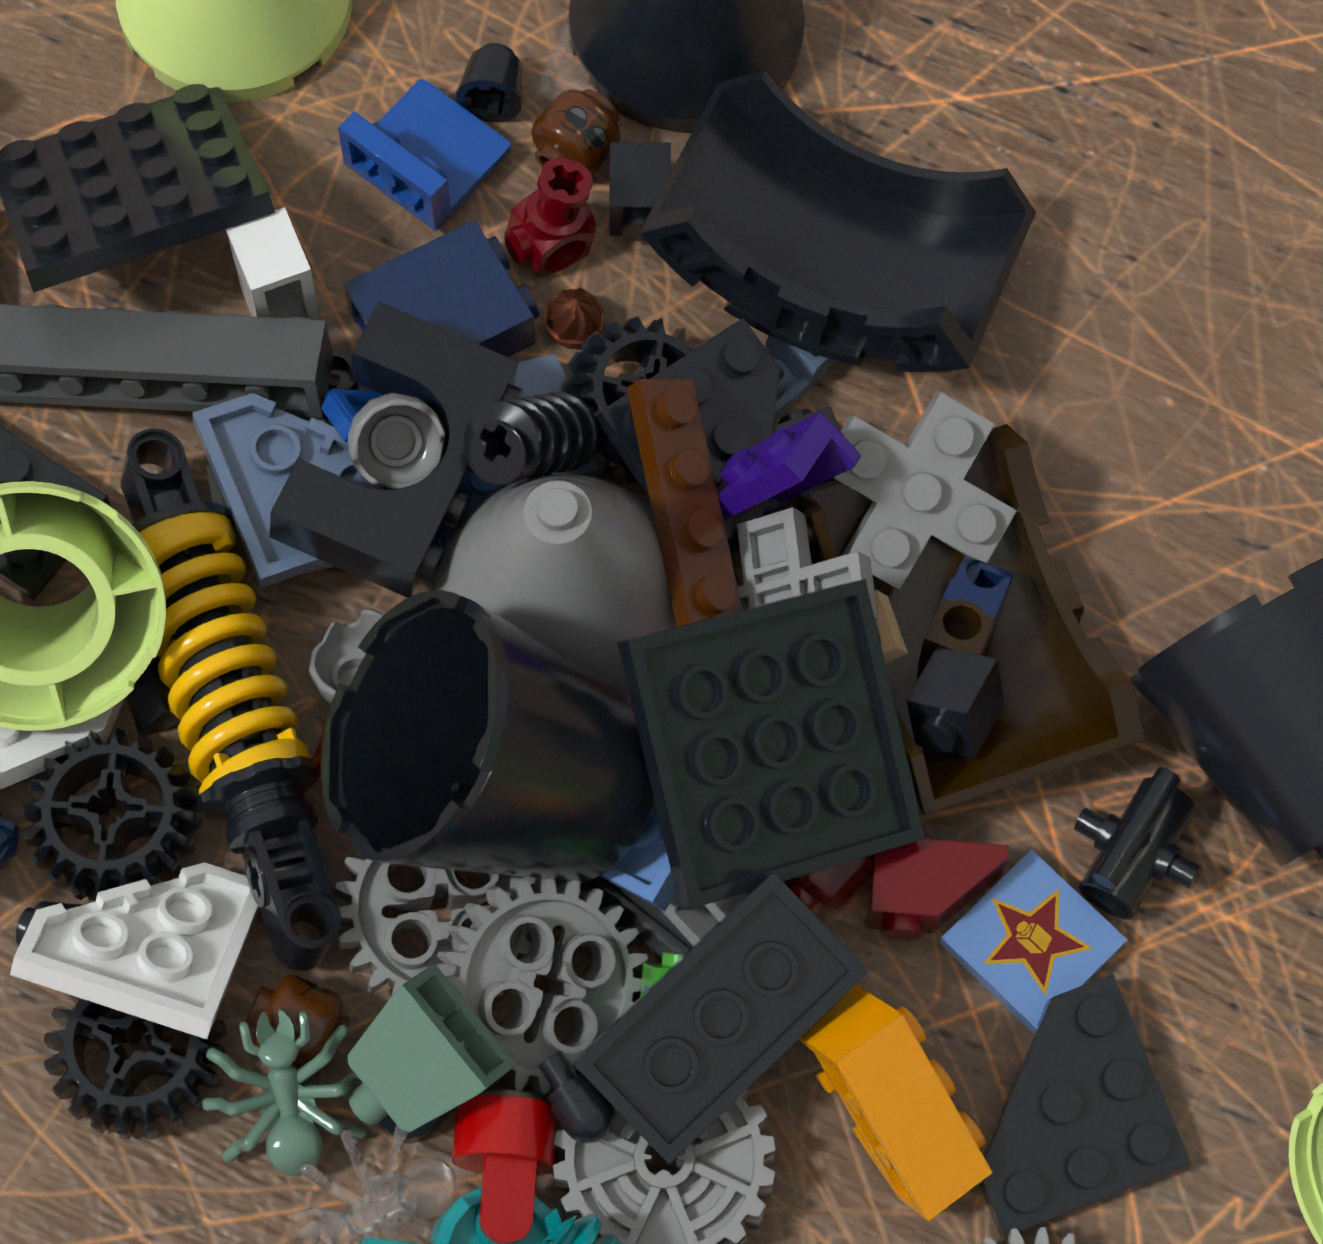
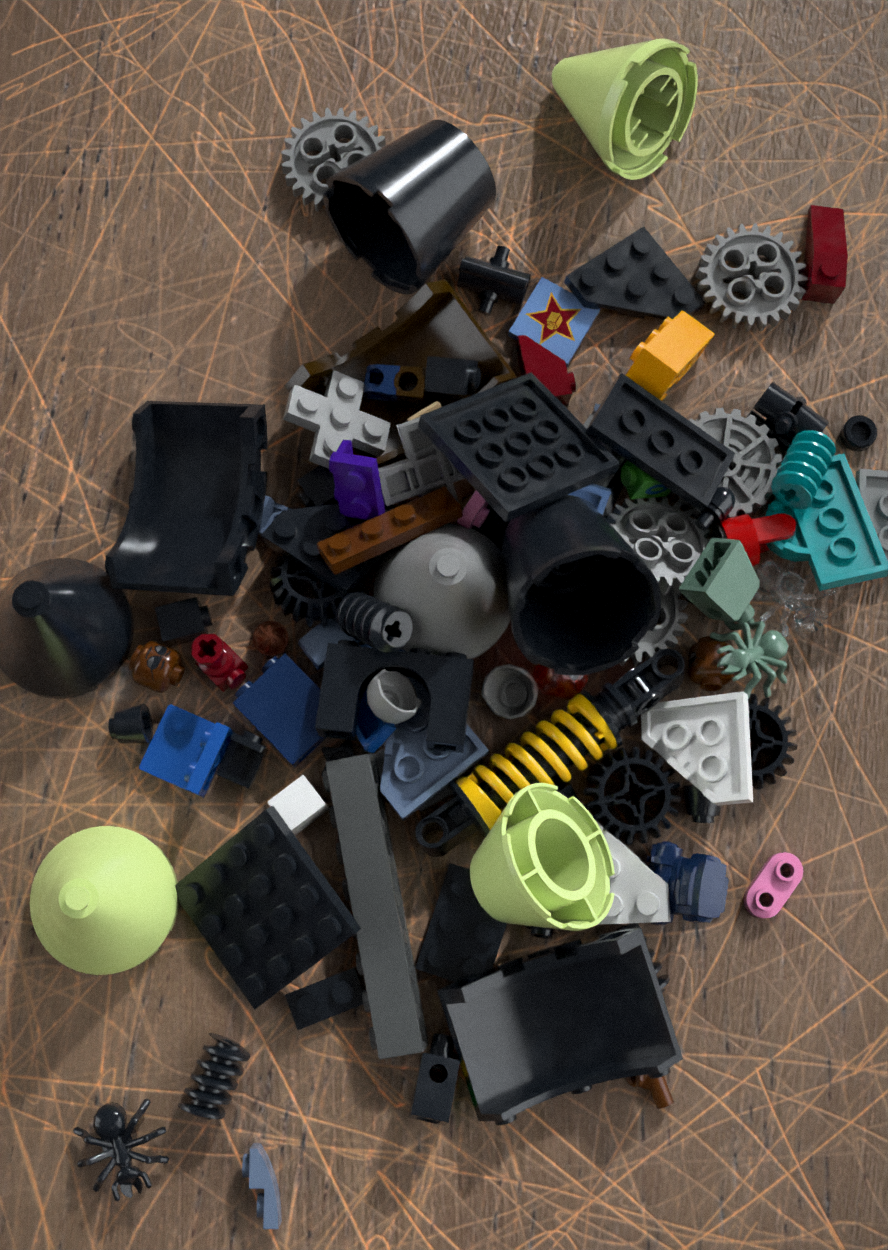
camera: 110 degrees left, 10 degrees up
(382, 224) = (243, 759): none -> black bracket

